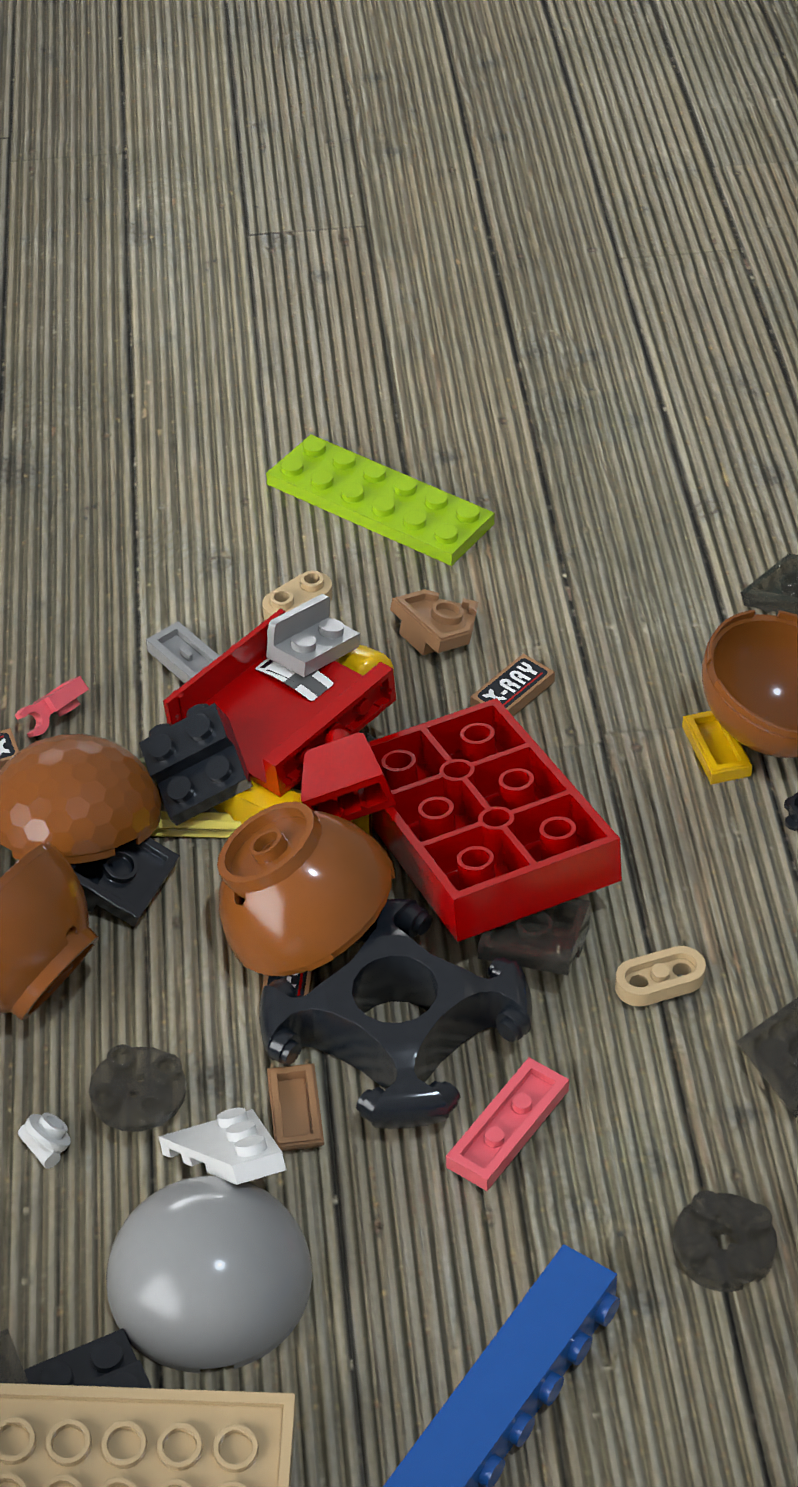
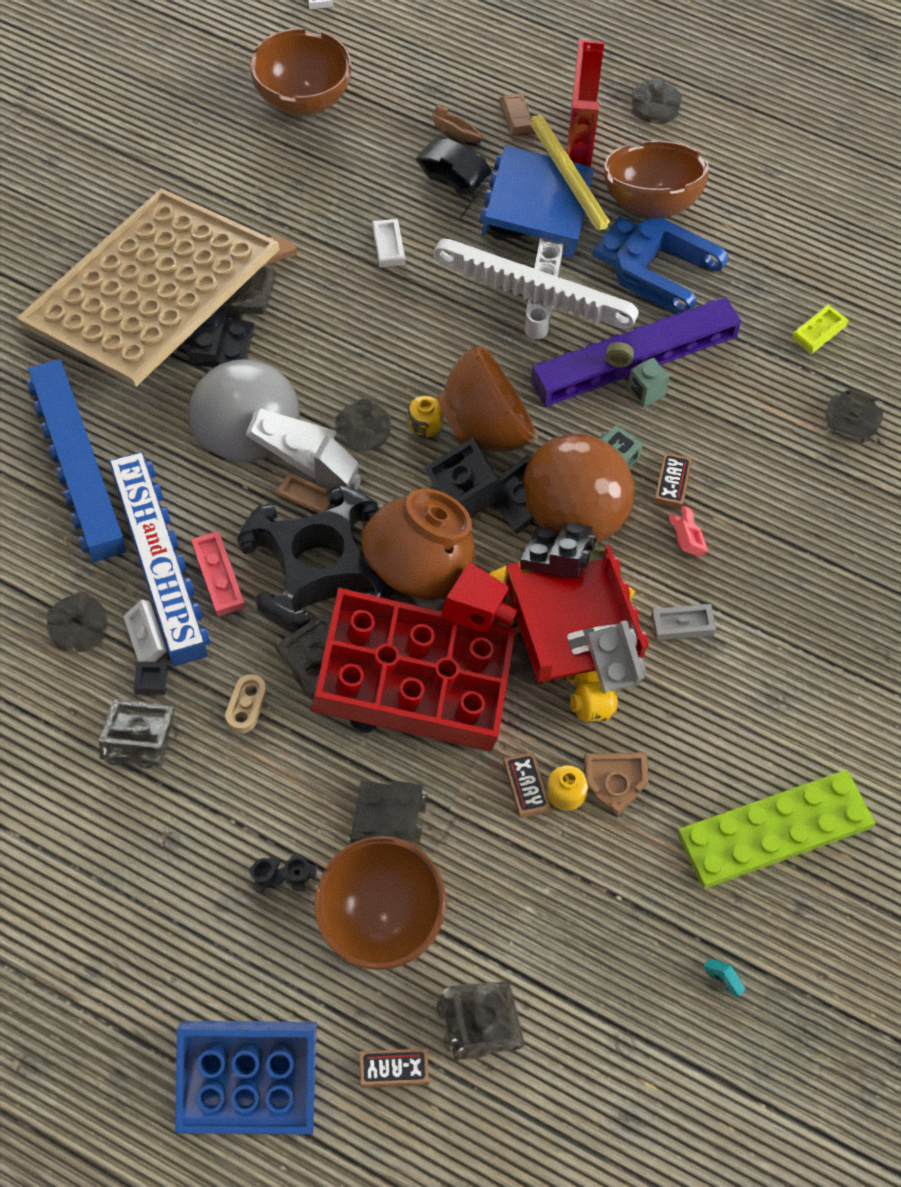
camera: 120 degrees right, 15 degrees up
(45, 1137) = (374, 387): white plate -> none
(63, 1033) = (424, 416): none -> yellow head
(160, 920) = (466, 477): none -> black brick
(241, 1077) = (335, 466): none -> light grey slope
(296, 592) = (701, 715): tan plate -> none
(491, 642) = (567, 787): none -> yellow head
(538, 1213) = (158, 559): none -> brick
(575, 462) = (726, 974): none -> teal tile
(662, 773) = (389, 811): none -> clear smoke plate
(670, 1140) = (145, 632): none -> white plate
(722, 1094) = (151, 678): none -> black plate

